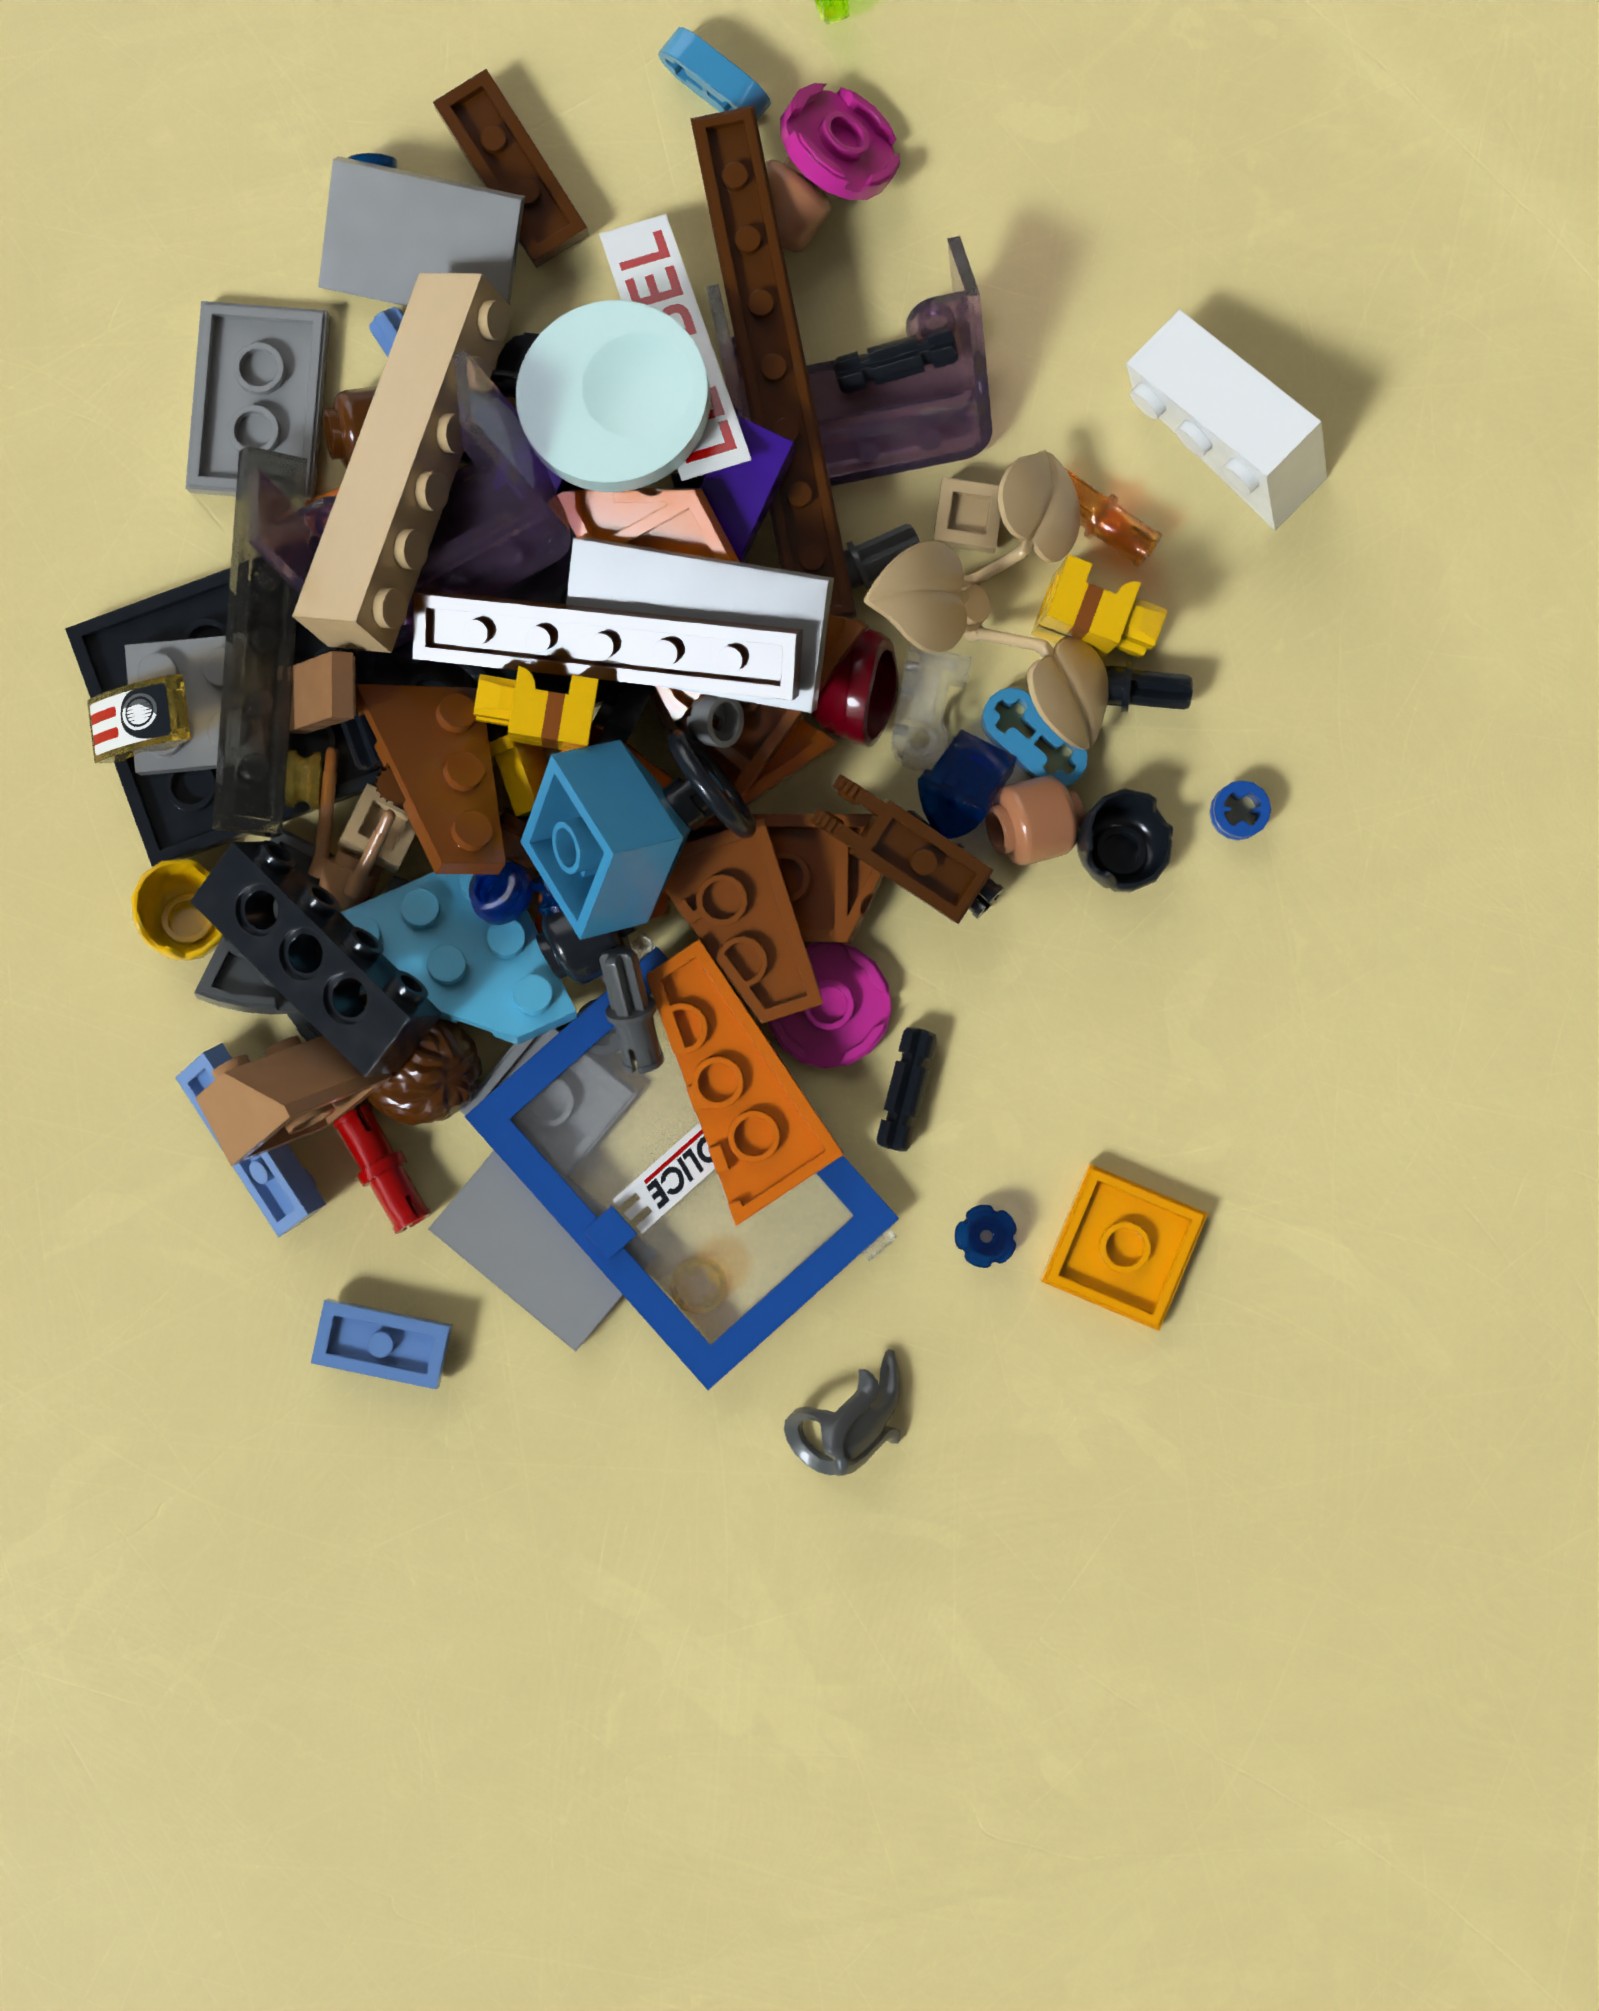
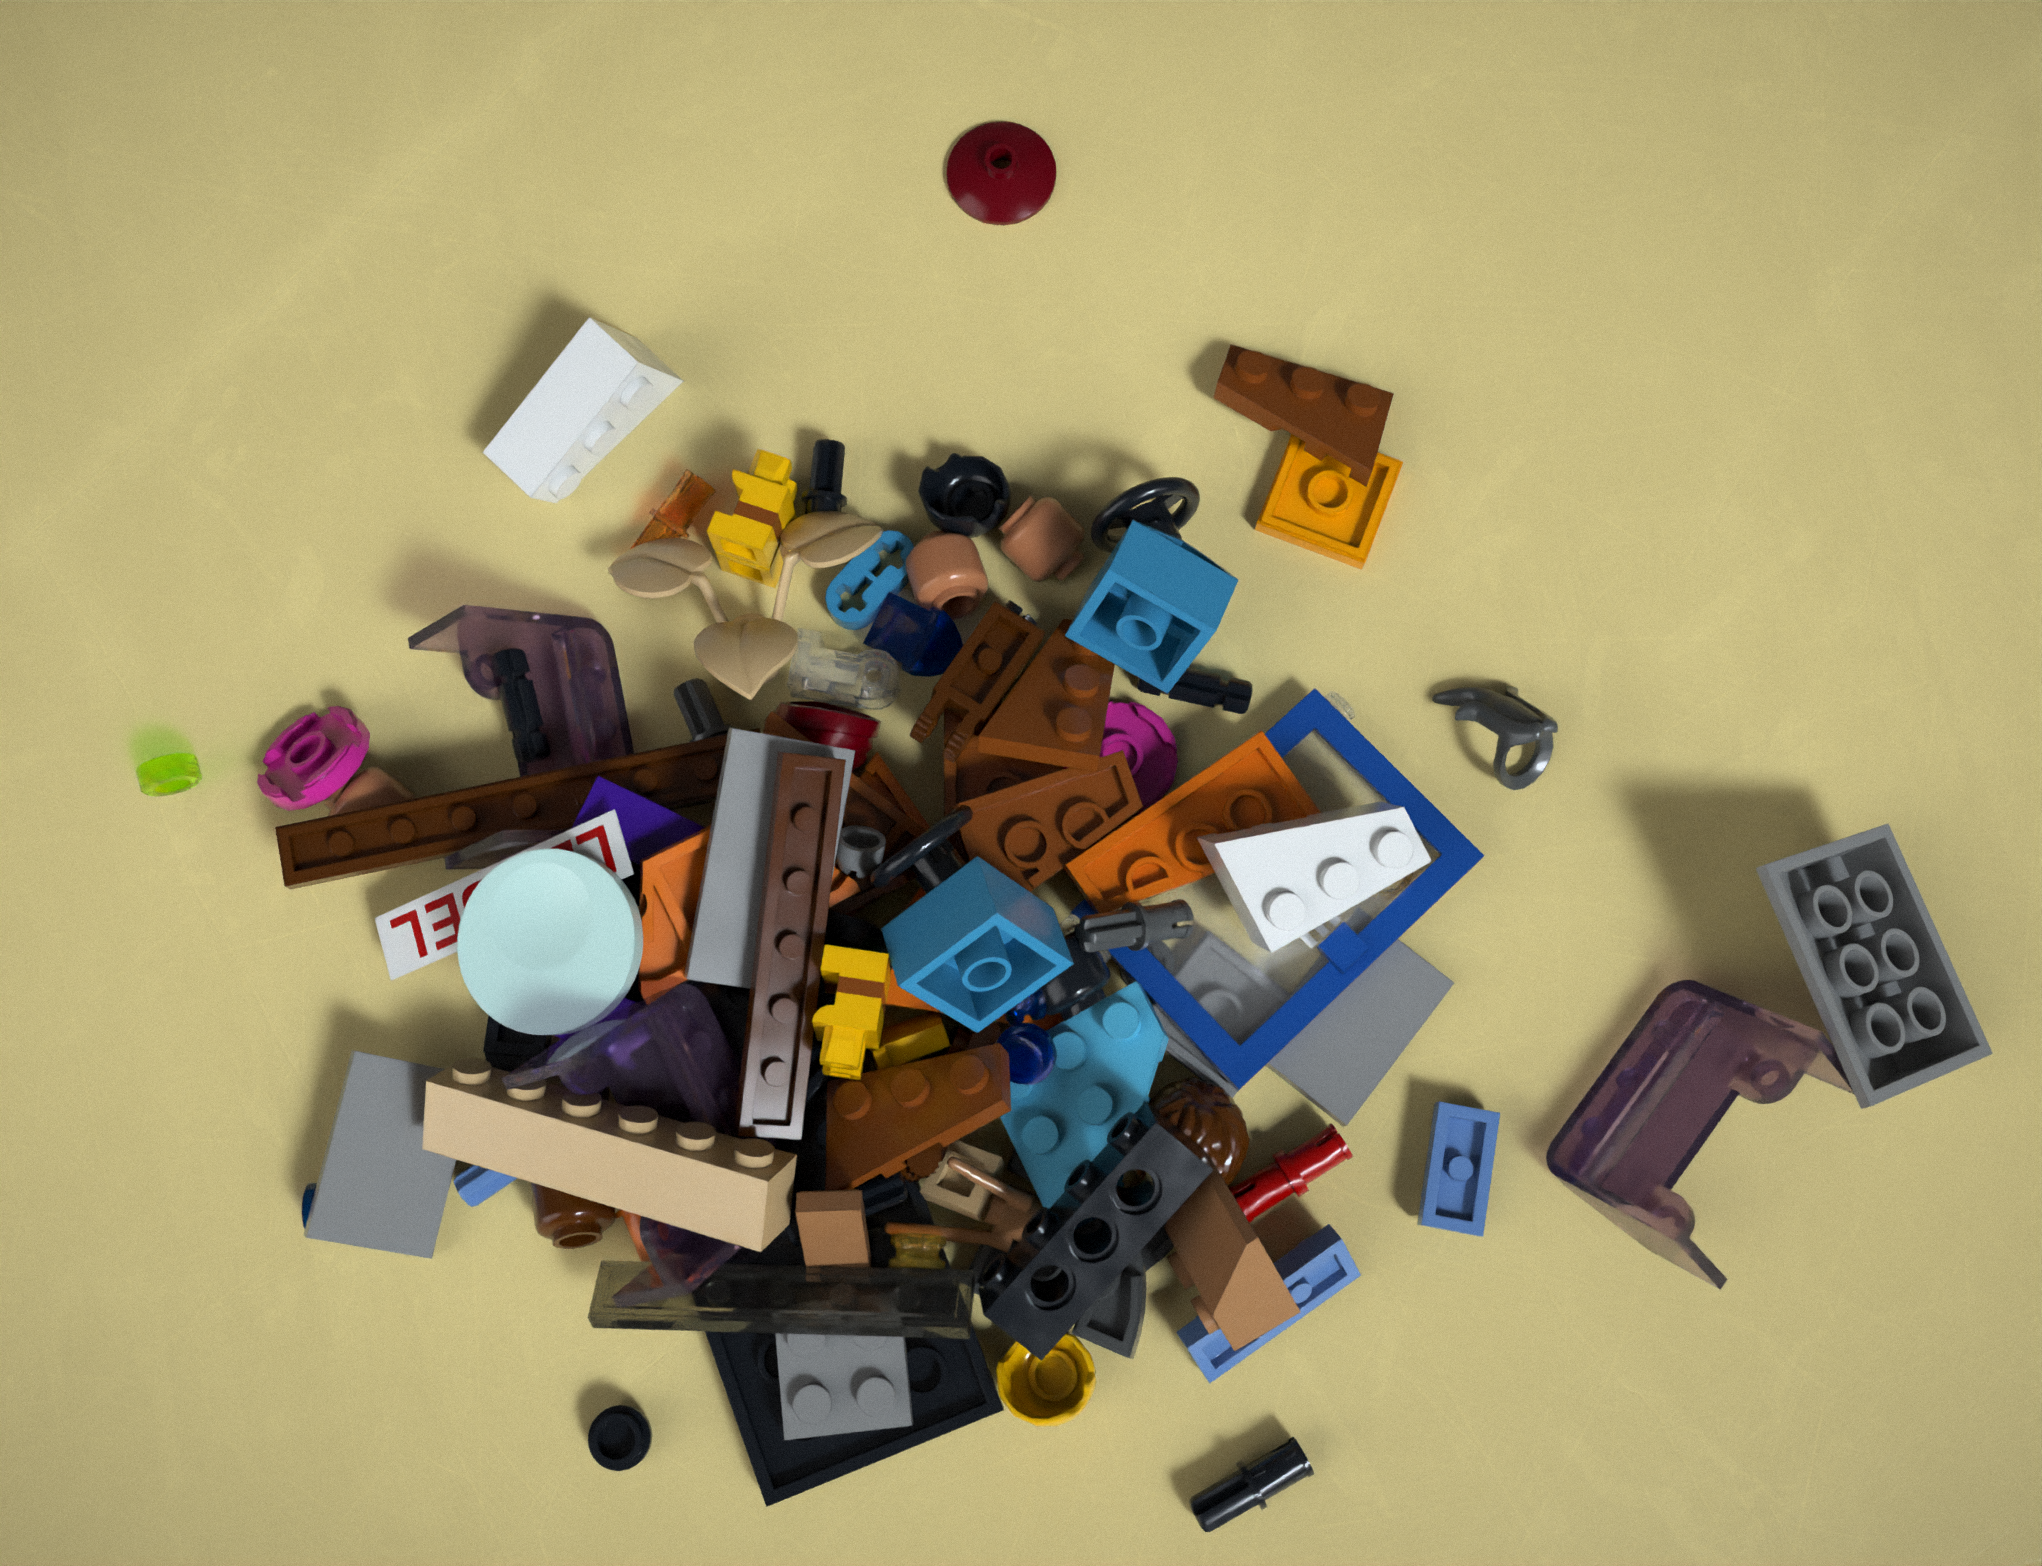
camera: 90 degrees left, 10 degrees down
(74, 1114) = (1250, 1485): none -> black axle
(138, 482) = (620, 1437): none -> black plate
(139, 718) = (859, 1418): slope -> none
(256, 387) = (530, 1322): light grey tile -> none
(441, 1560) = (1666, 1098): none -> windscreen
(511, 163) = (316, 1071): reddish brown plate -> none
(572, 1785) = (1874, 964): none -> light grey slope
(688, 1201) = (1312, 867): none -> white wedge
(711, 74) = (242, 882): dark azure beam -> none
(883, 940) = (1054, 708): none -> dark orange wing
(967, 515) = (665, 639): tan plate -> none
(982, 1253) = (1326, 598): clear blue plate -> none
(999, 1047) = (1155, 592): none -> dark azure piece
(1073, 926) = (1042, 539): none -> nougat head
(1223, 1233) = (1317, 407): none -> dark orange wing
(1238, 791) = (934, 384): blue bush -> none
(1492, 896) = (1007, 193): none -> dark red dish

